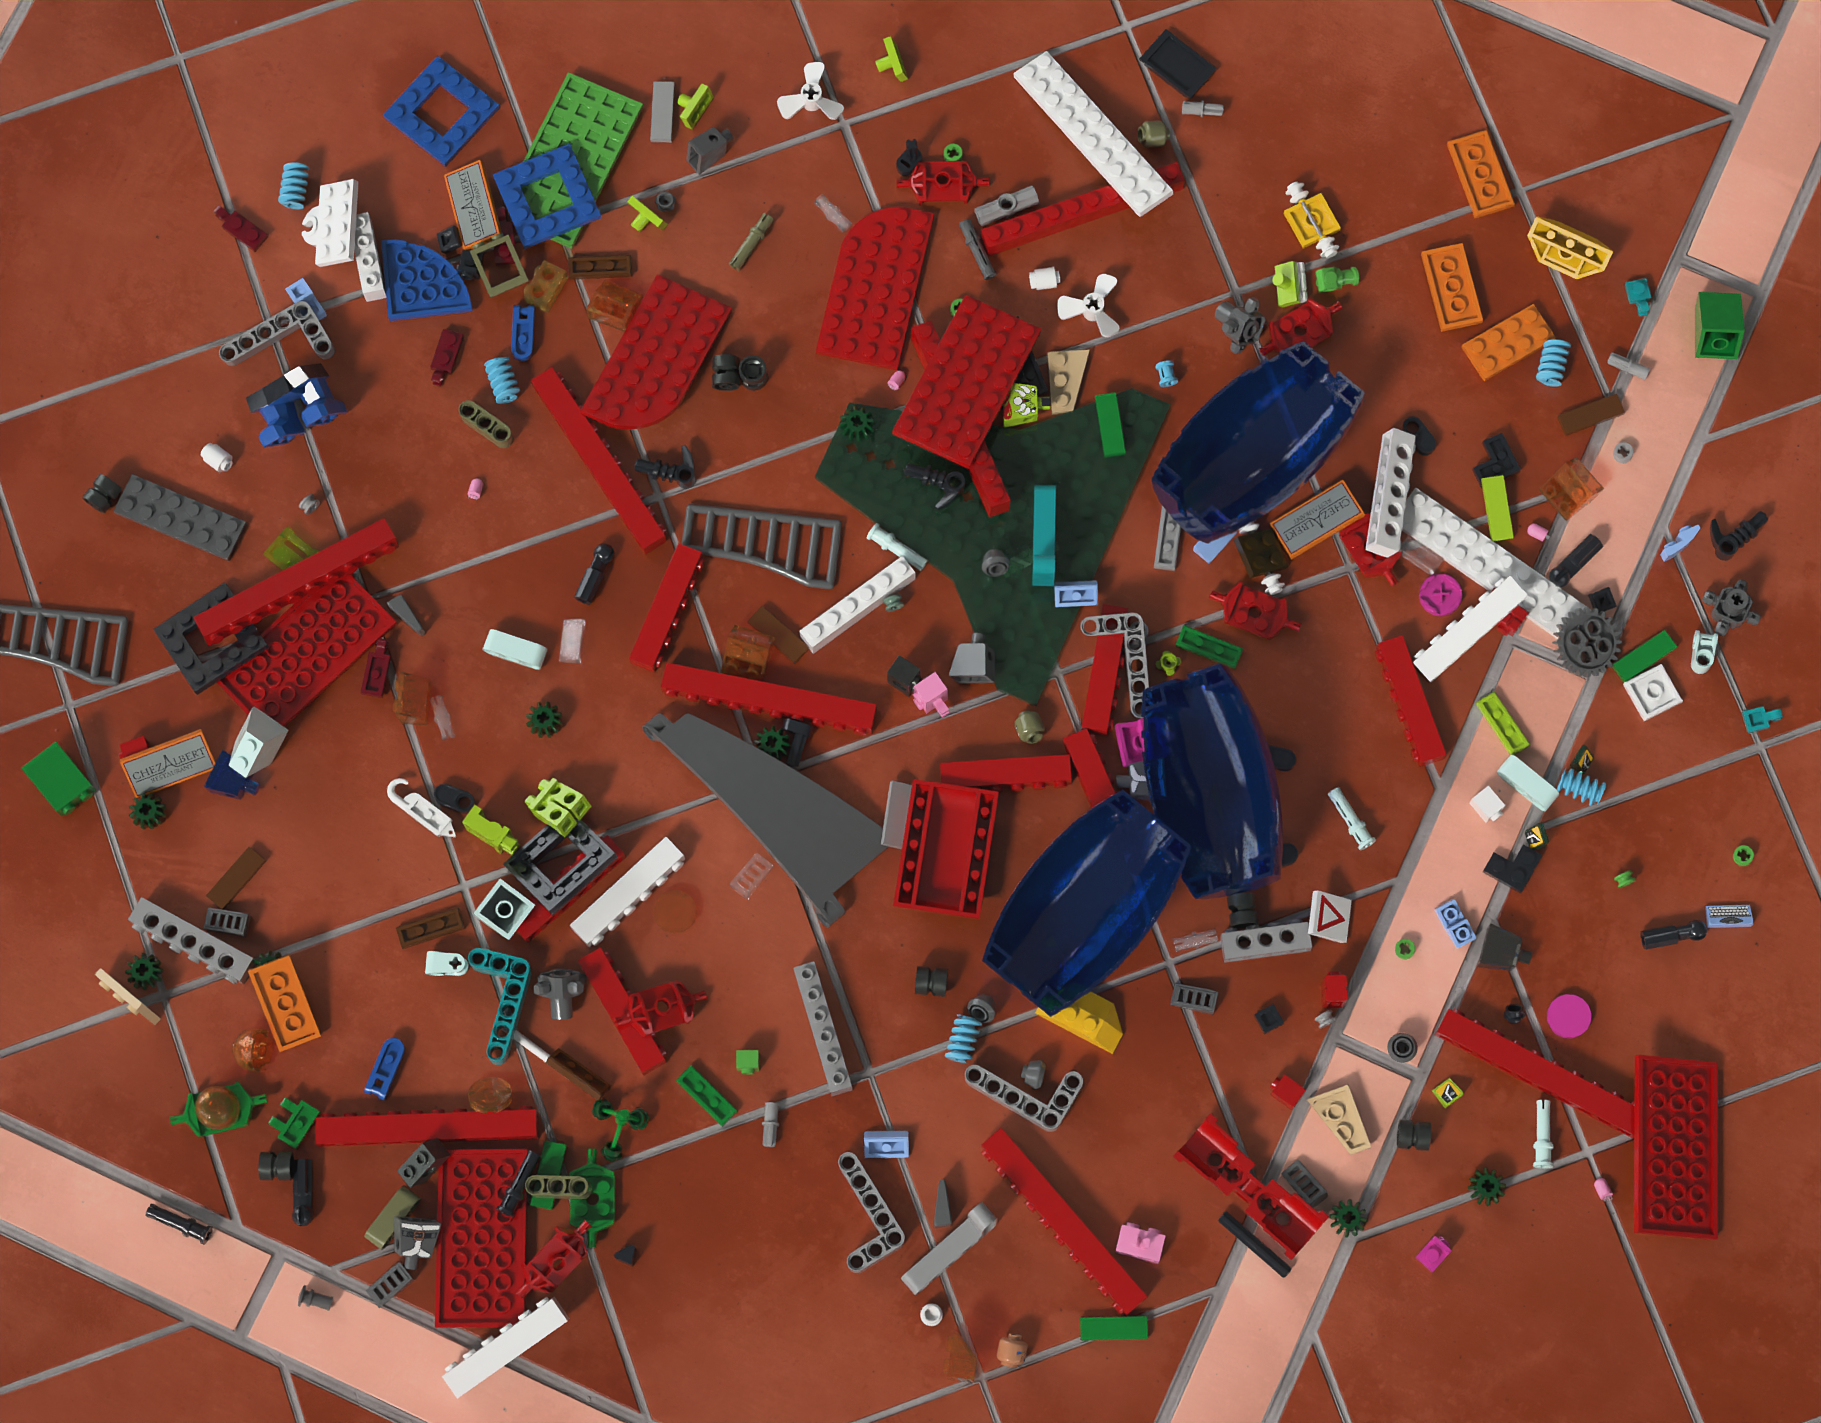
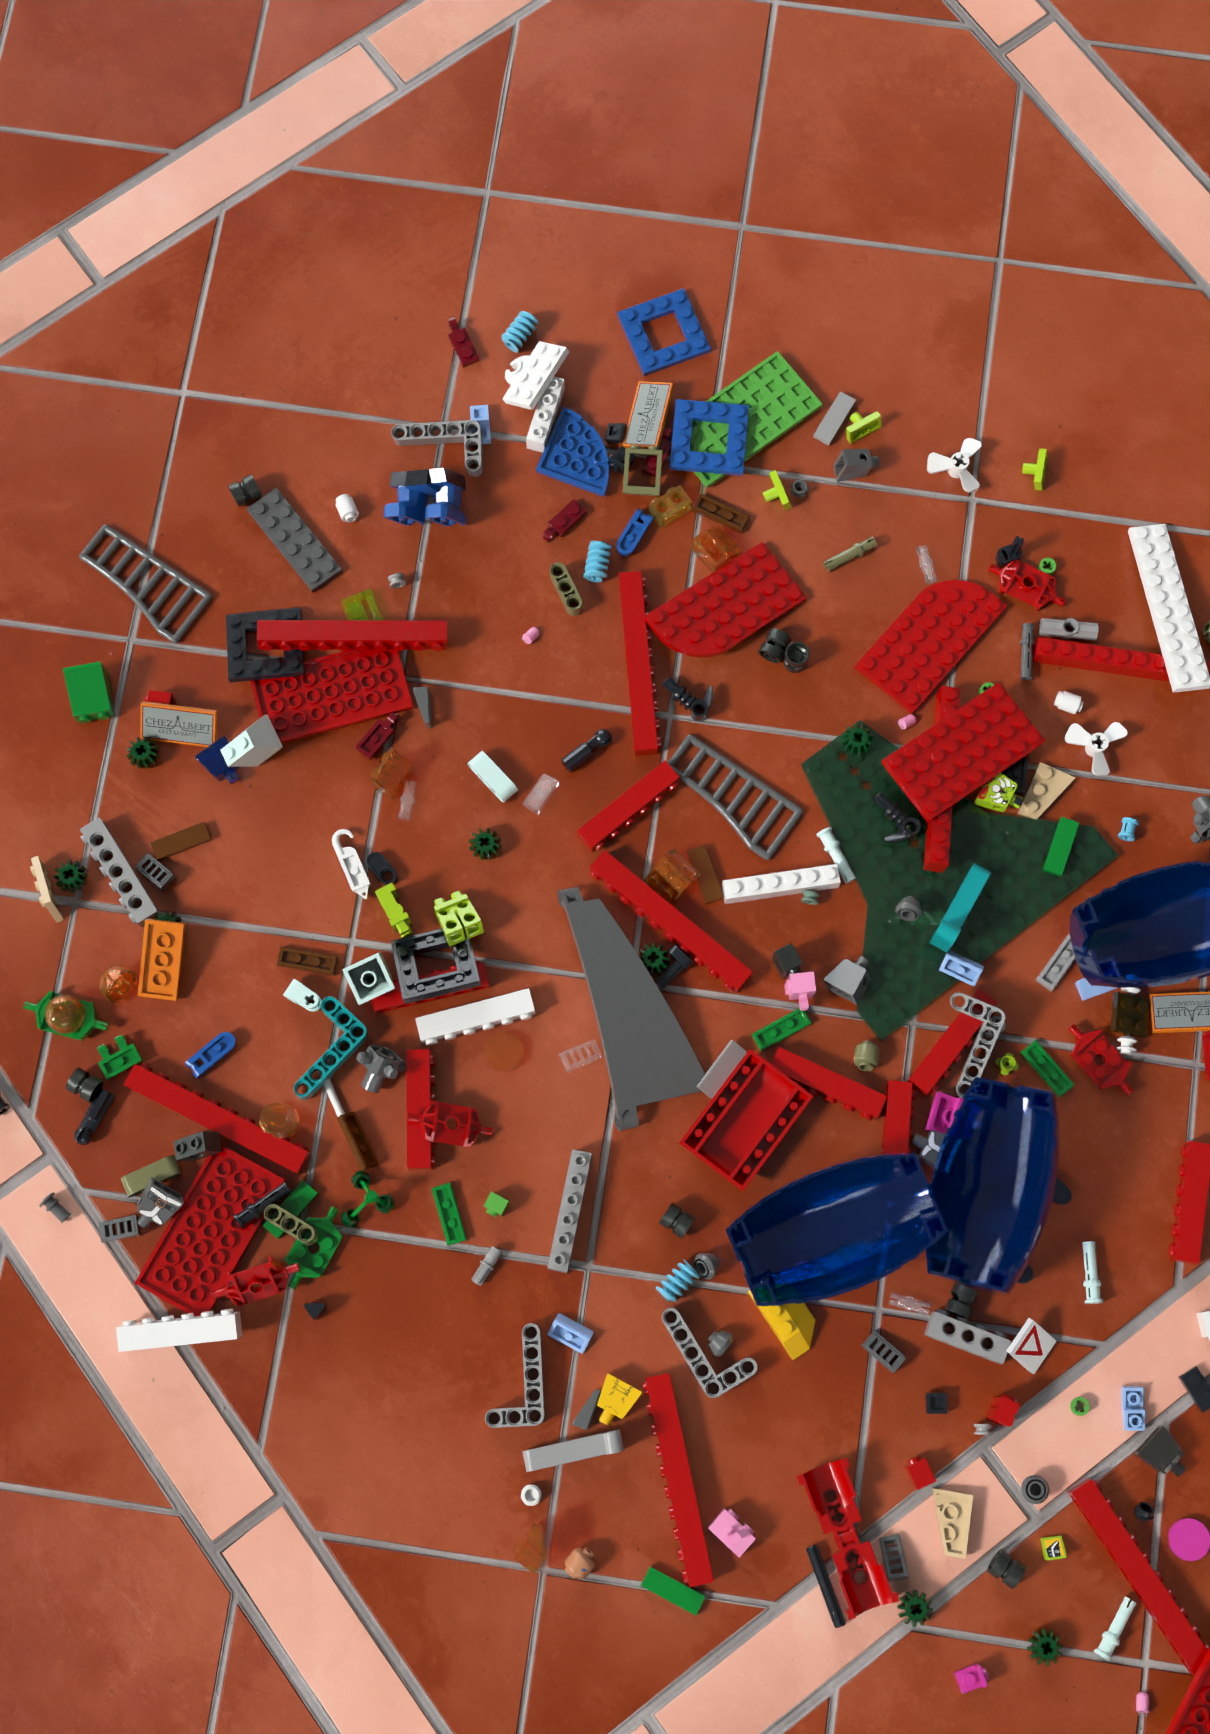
camera: 25 degrees right, 0 degrees up
(933, 745) = (781, 1029): none -> green tile
(964, 1180) = (616, 1399): none -> yellow torso

